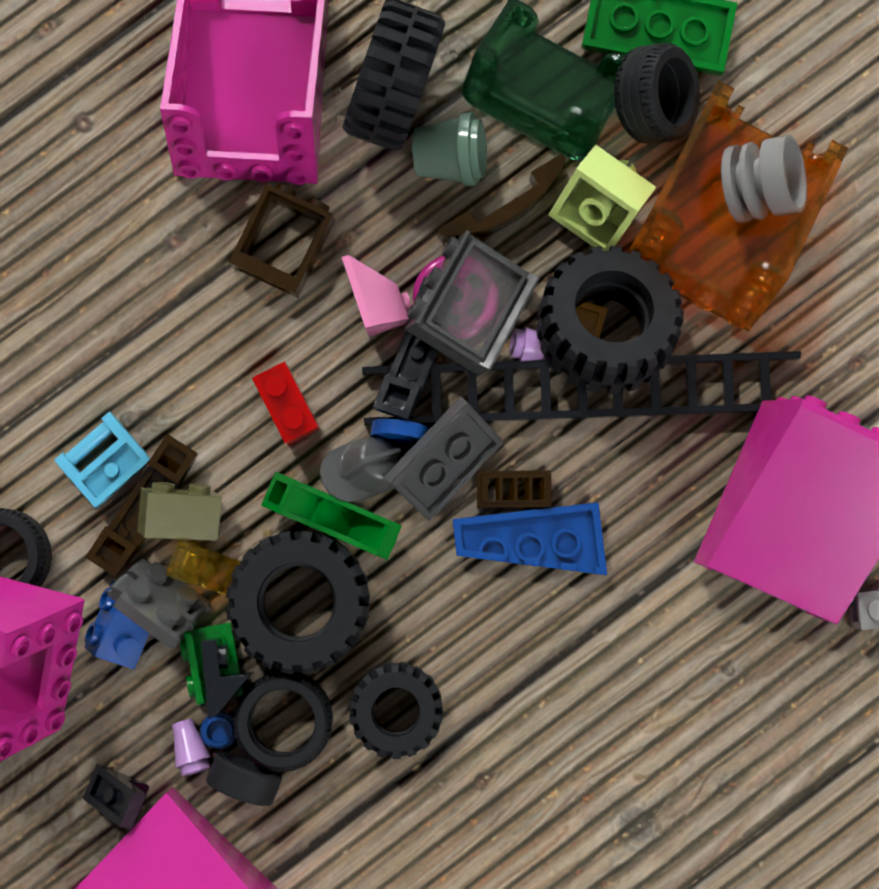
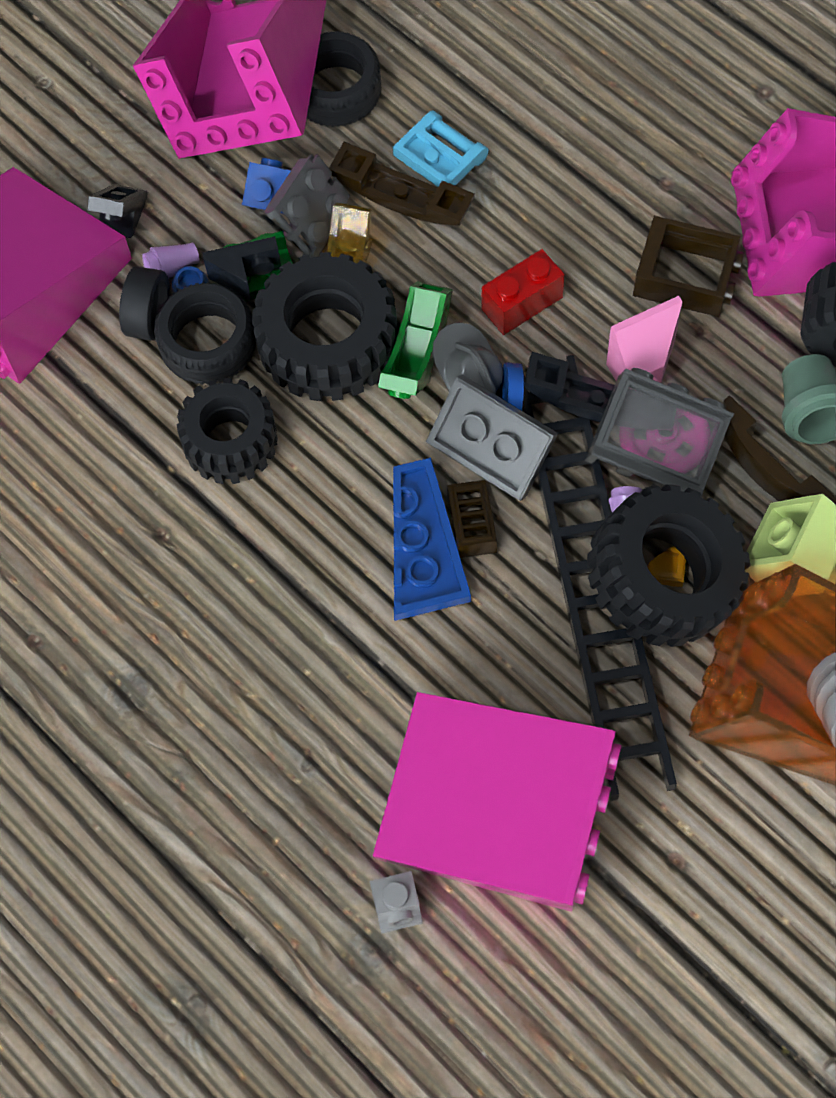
camera: 85 degrees right, 20 degrees down
(179, 512) = (398, 210): olive brick -> none

